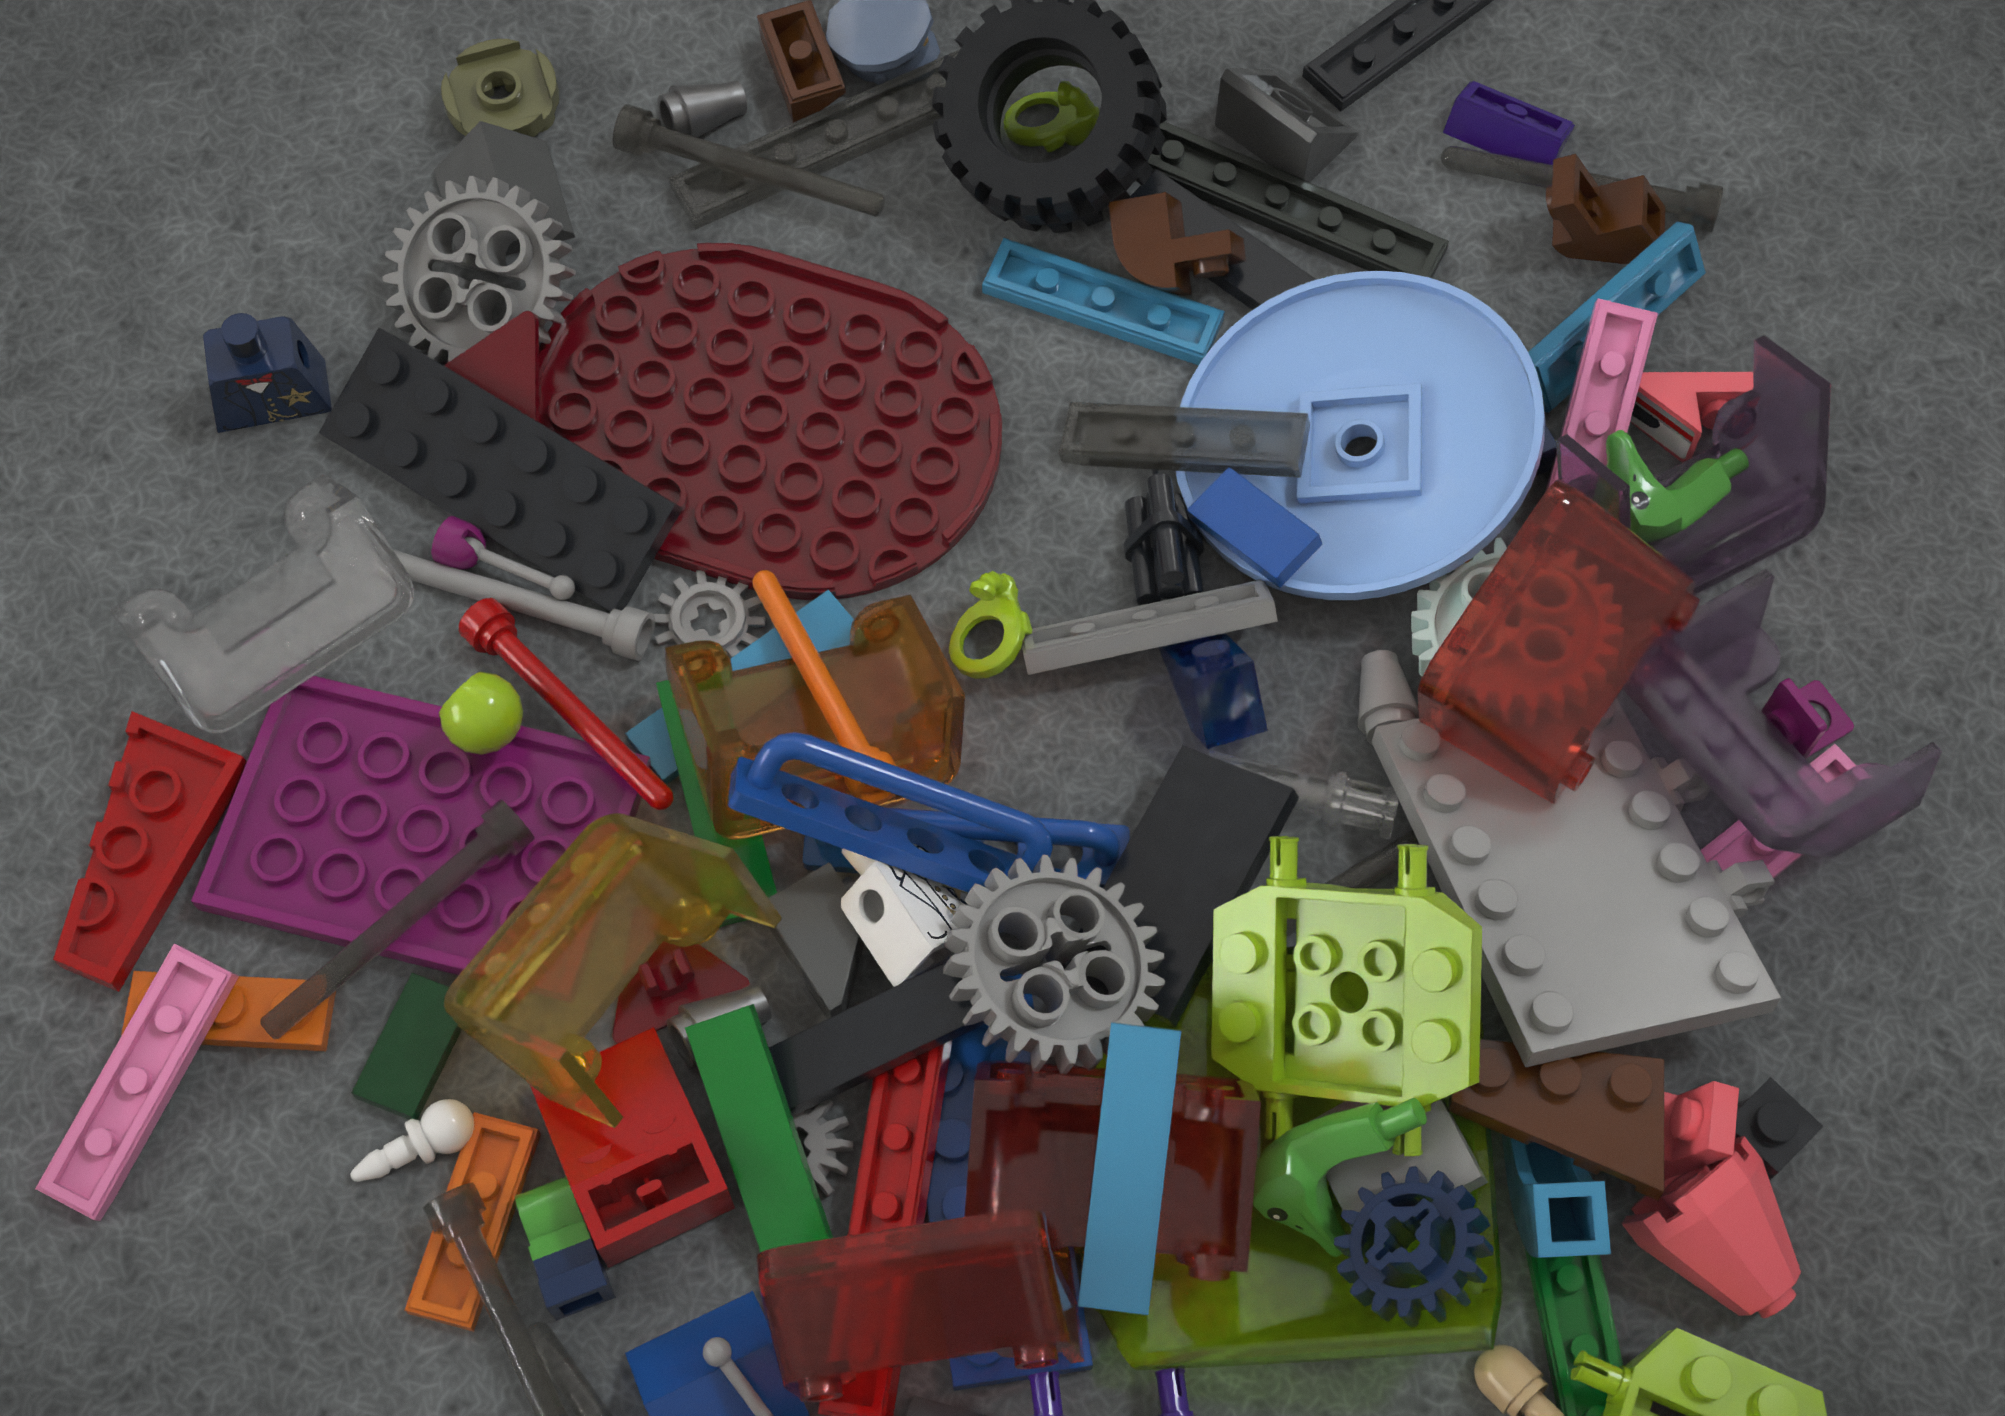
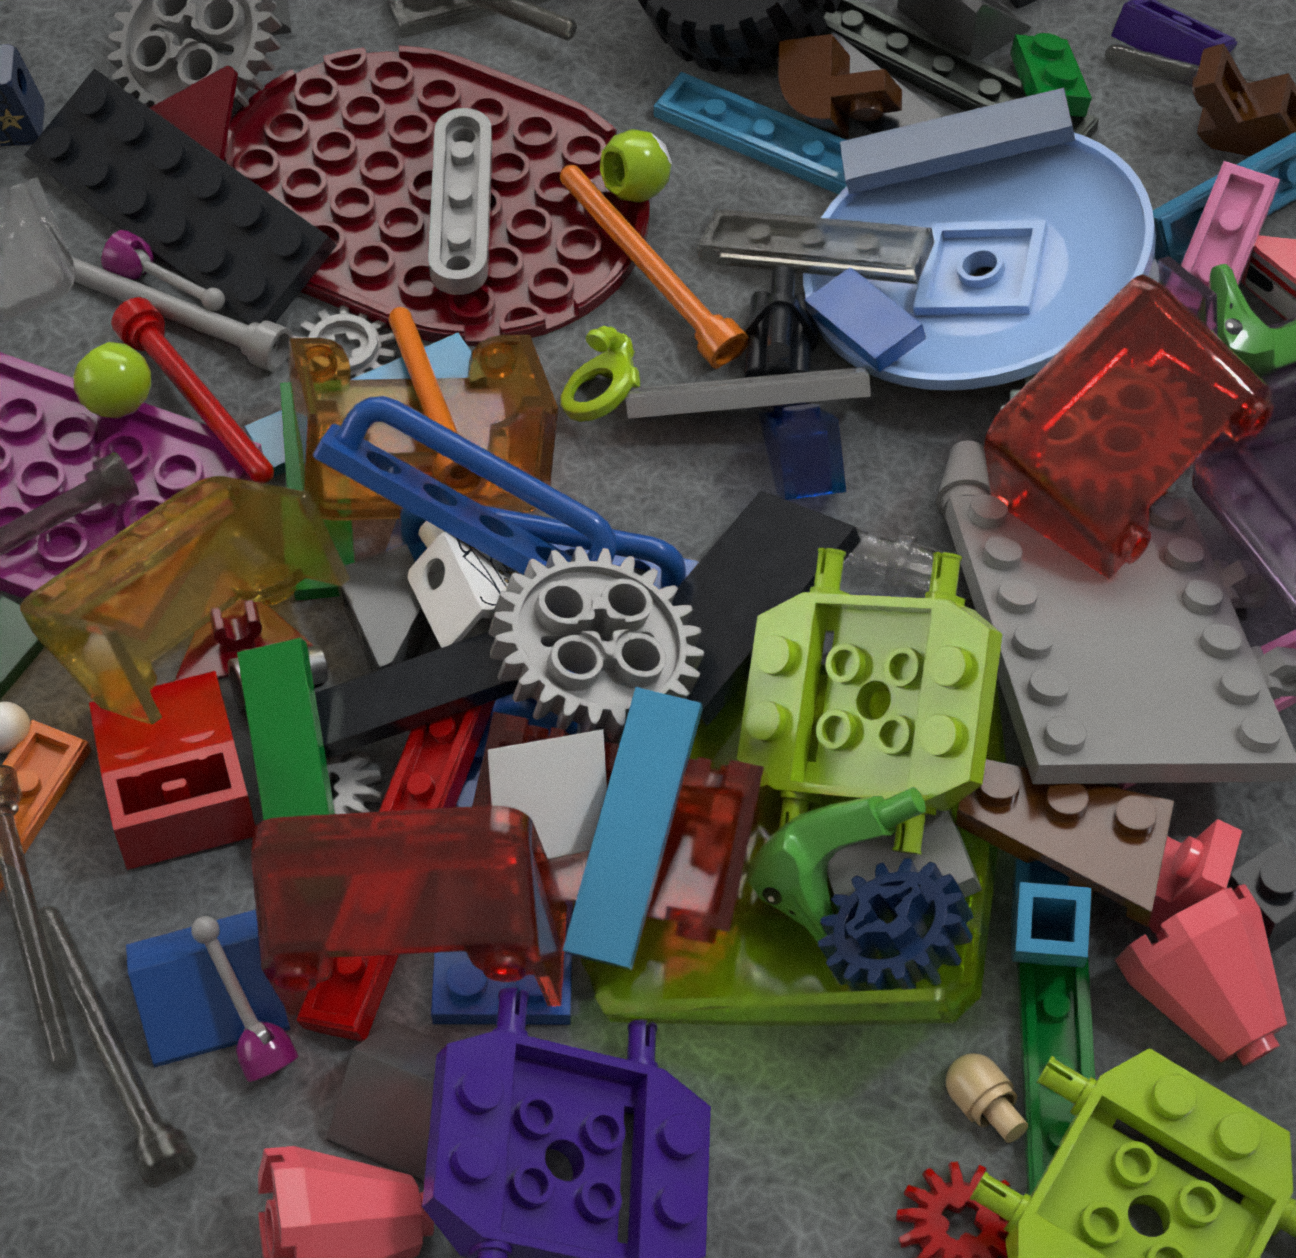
camera: 10 degrees right, 10 degrees down
(562, 1250) = (86, 846): leg -> none
(804, 435) = (460, 201): none -> light grey plate
(982, 372) = (635, 165): none -> lime piece
(1040, 1148) = (556, 785): none -> white sticker
(1100, 559) = (717, 337): none -> orange piece
(1315, 301) = (957, 141): none -> sand blue tile
(1392, 196) = (1049, 64): none -> green plate

